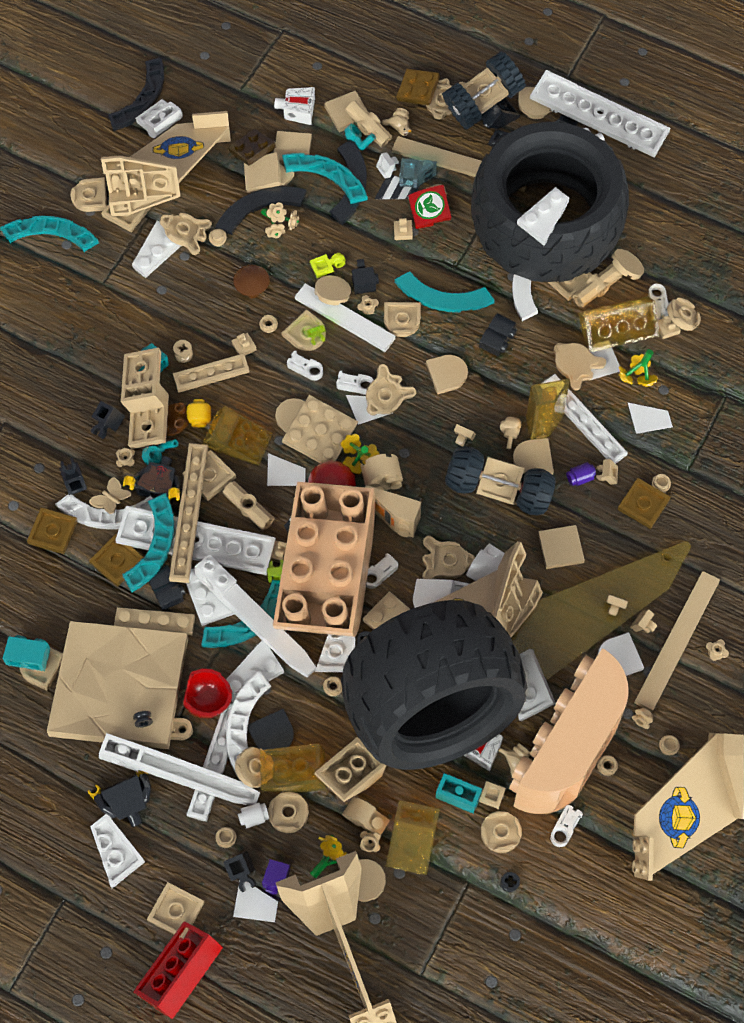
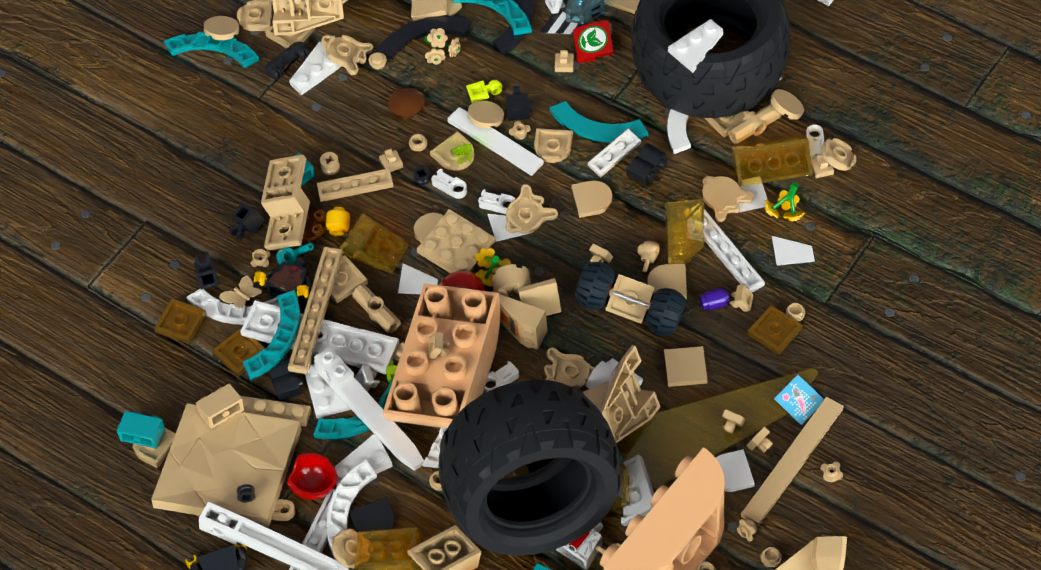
camera: 10 degrees right, 10 degrees down
(56, 210) = (221, 27): none -> tan tile
(104, 624) = (220, 406): none -> tan brick
(115, 250) = (275, 66): none -> black piece
(246, 581) = (366, 378): none -> white tile
(276, 364) = (422, 180): none -> black bush
(319, 551) = (436, 346): none -> tan tile
(412, 484) = (541, 295): none -> tan tile
(464, 324) = (614, 152): none -> white tile
(676, 575) = (799, 399): none -> medium azure sticker

